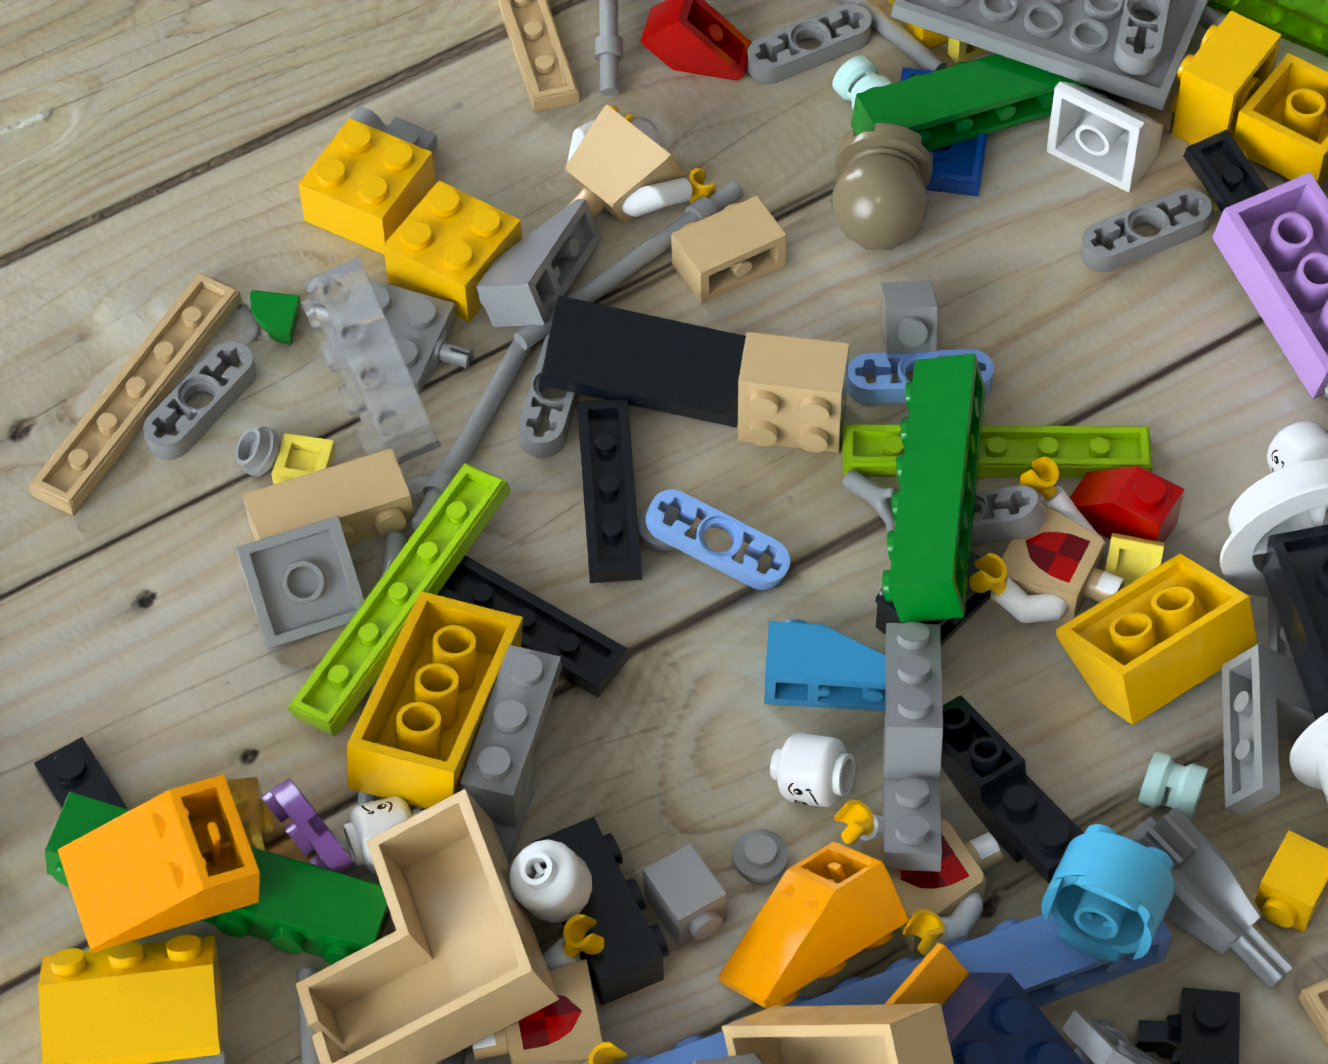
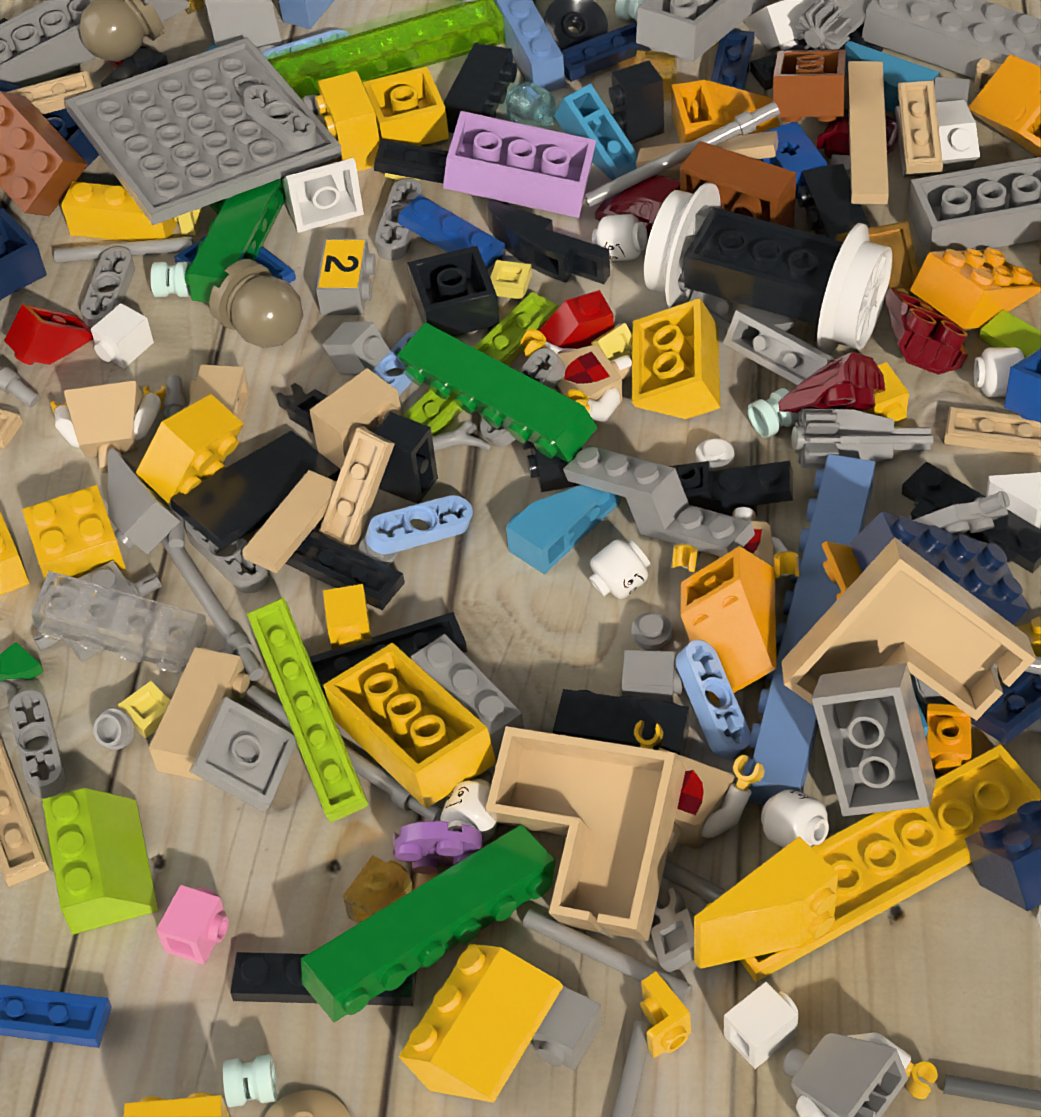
camera: 50 degrees left, 5 degrees down
(85, 676) = (193, 924): none -> bright pink brick
(101, 544) = (98, 858): none -> lime slope
(162, 865) = (413, 926): light orange slope -> none
(546, 557) = (346, 615): none -> yellow brick
(550, 881) = (596, 710): white head -> none
(622, 421) = (290, 522): none -> tan tile
(625, 264) = (190, 447): none -> yellow brick
(700, 446) = (356, 487): none -> tan tile
(712, 929) = (710, 676): none -> light blue beam
(748, 101) = (122, 336): none -> white brick
(784, 463) = (412, 461): none -> black brick
(799, 319) = (299, 405): none -> black plate
(1006, 237) = (344, 277): none -> brick
(1063, 764) = (717, 452): none -> white plate
(1064, 353) = (454, 291): none -> black brick
(1109, 894) = (842, 461): medium azure brick -> none
(1146, 393) = (511, 279): none -> light yellow plate
(1162, 292) = (448, 230): none -> blue plate
(1225, 394) = (551, 253): none -> black slope
(1233, 825) = (841, 384): none -> dark red slope

